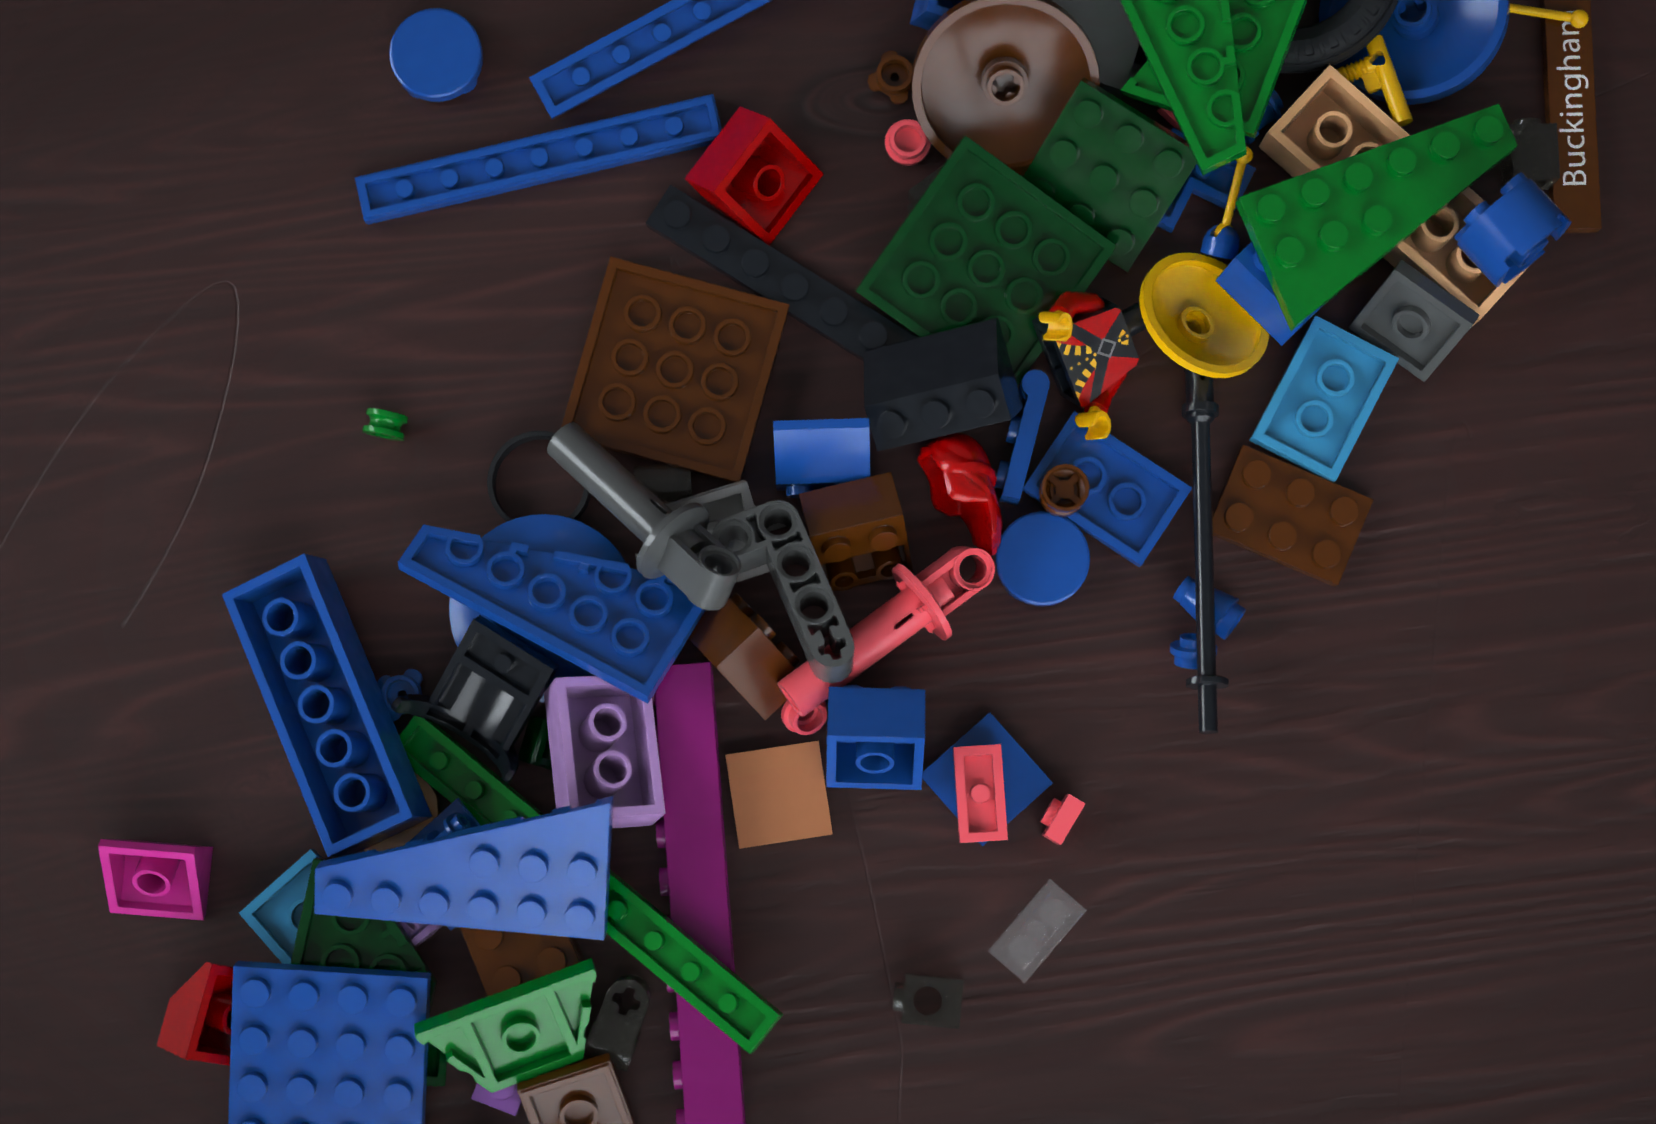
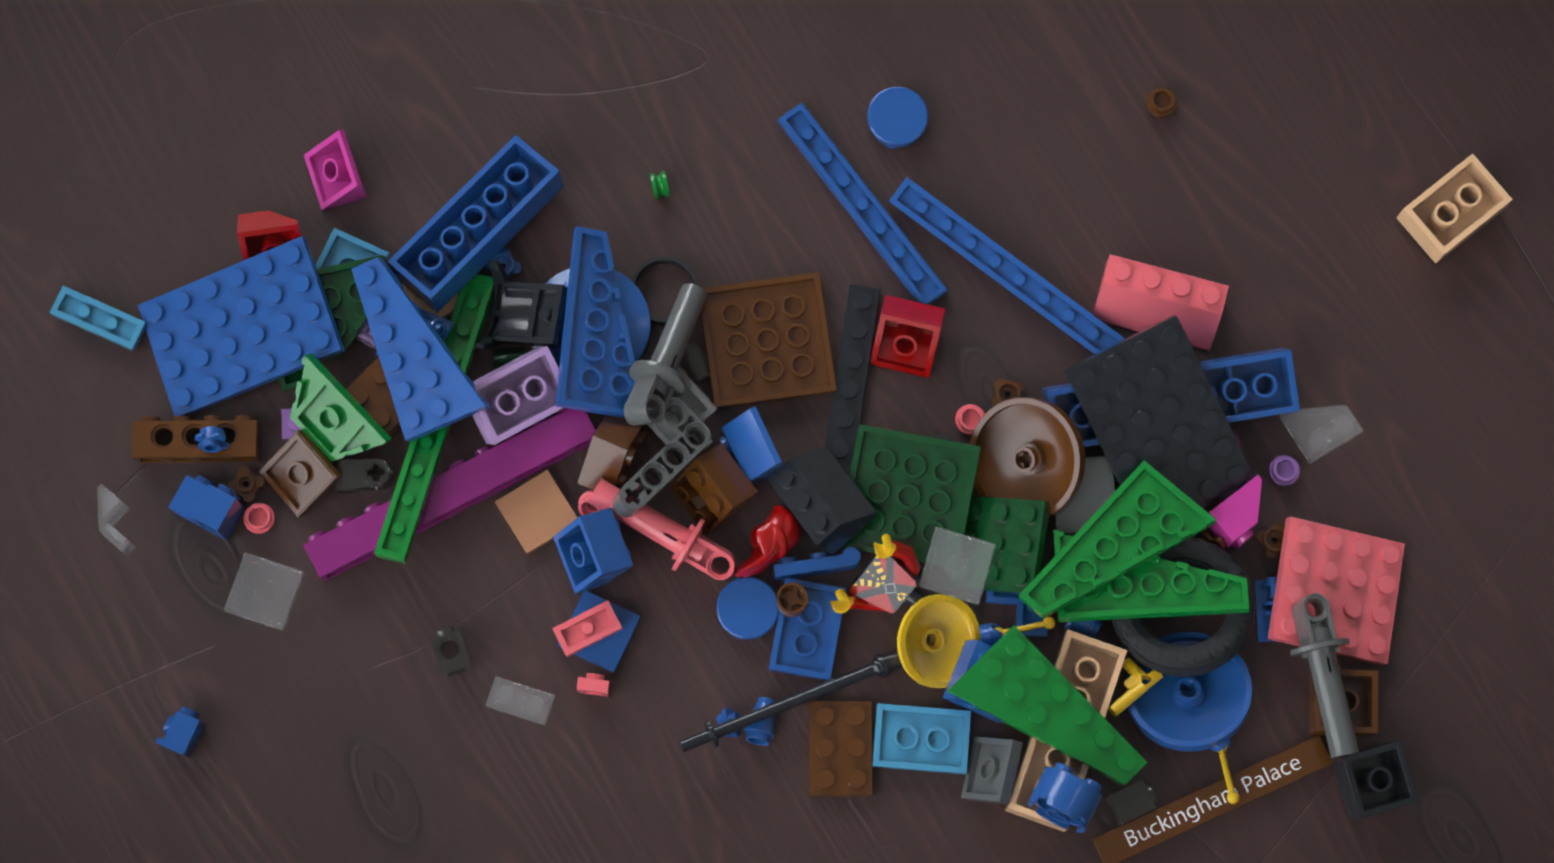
camera: 60 degrees right, 5 degrees down
(1114, 241) = (957, 565): none -> clear plate

